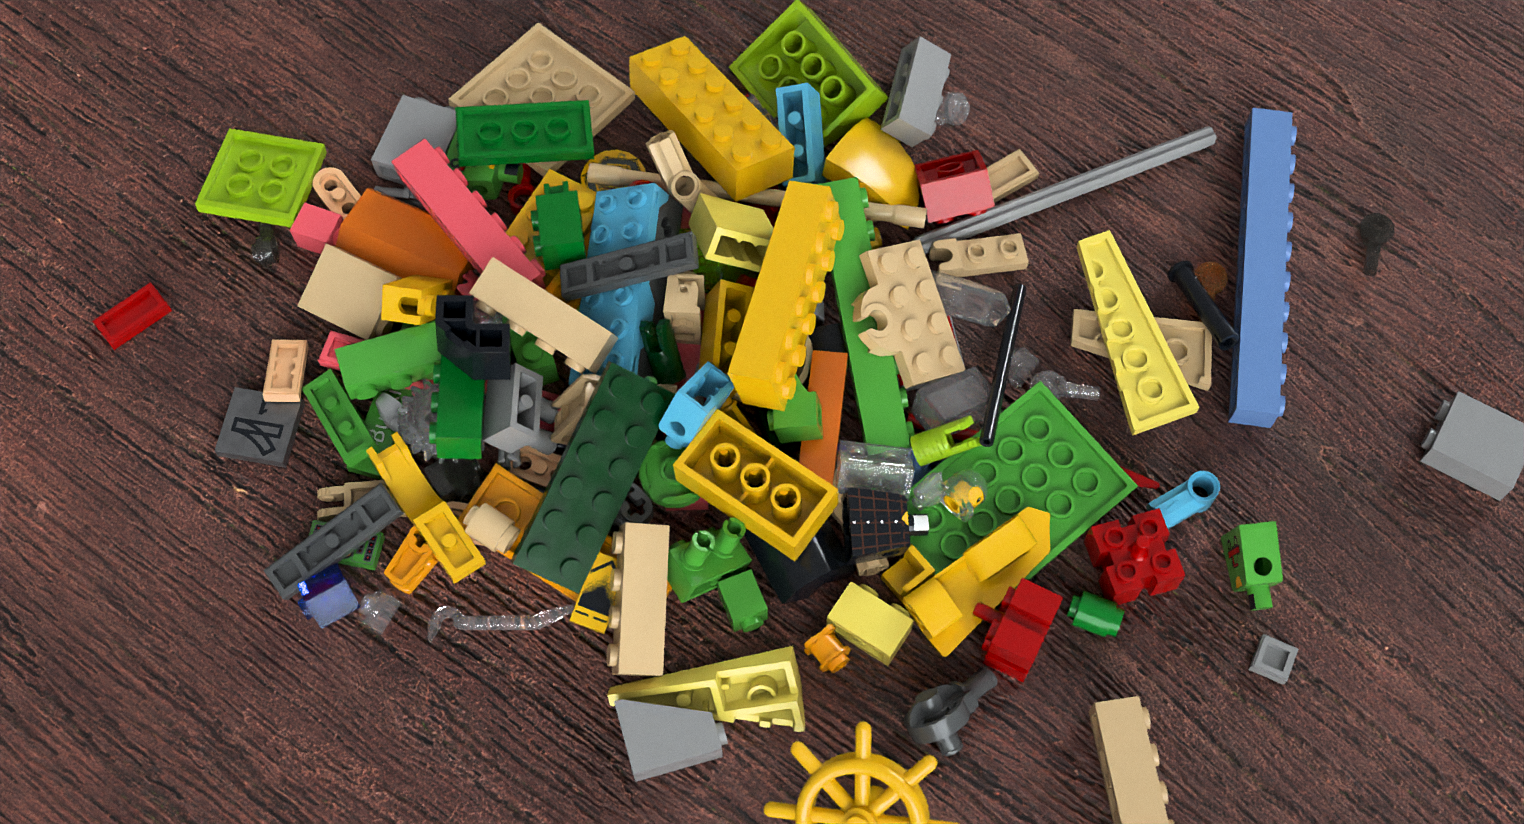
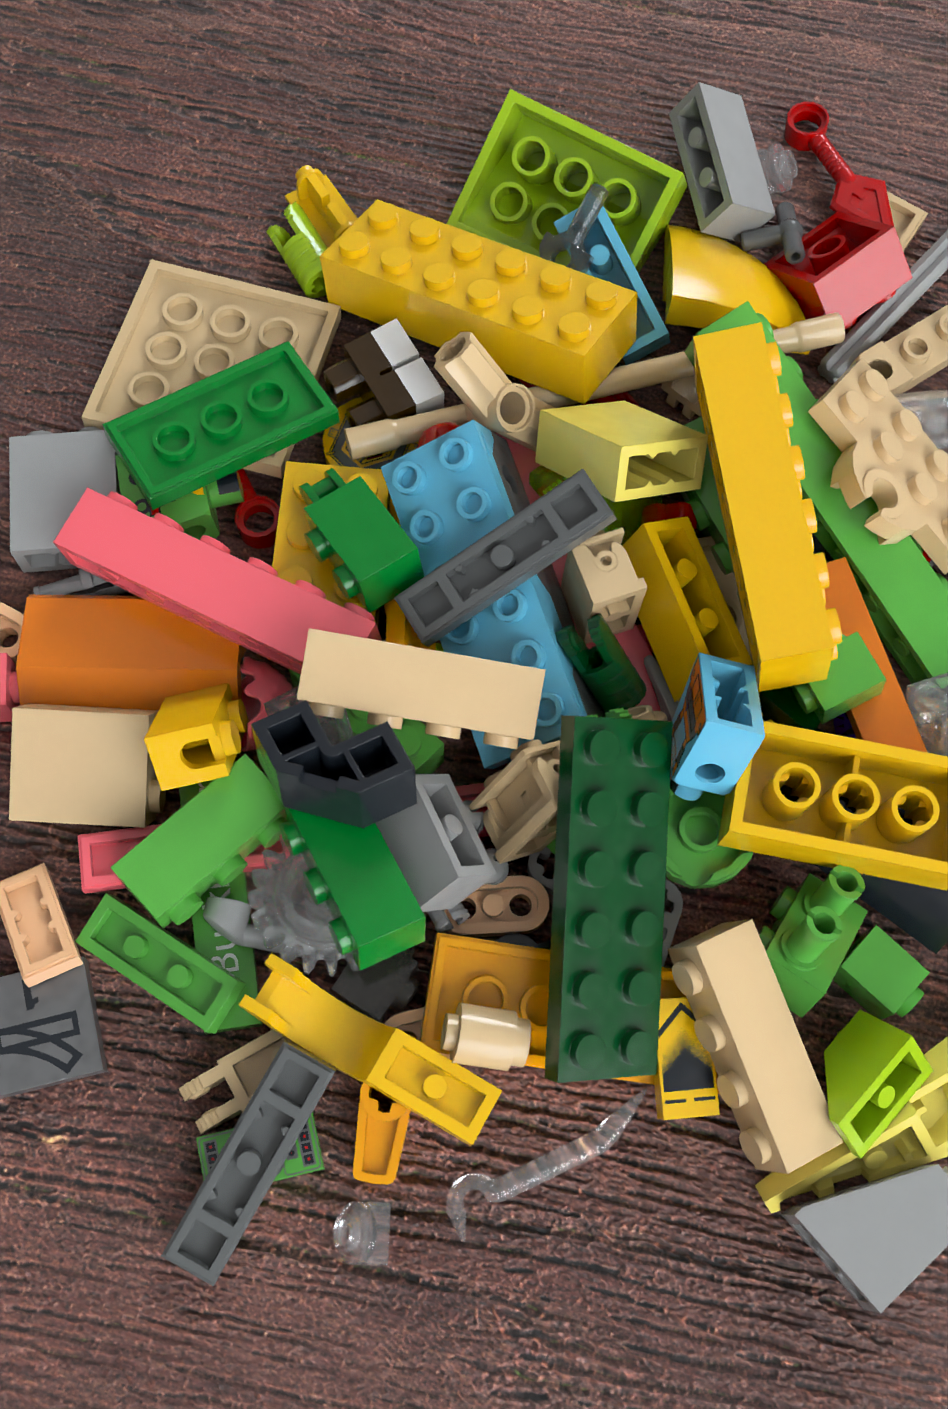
camera: 30 degrees left, 5 degrees up
(327, 596) = (283, 1253): clear blue brick -> none
(629, 44) = (301, 250): none -> lime hinge
(630, 136) = (386, 376): none -> dark brown hips
(656, 25) = (321, 204): none -> yellow hinge
(698, 652) = (870, 1078): none -> lime slope
(781, 102) = (576, 232): none -> clear smoke bar
(932, 151) = (787, 232): none -> dark grey piece
(996, 145) = (853, 192): none -> red piece

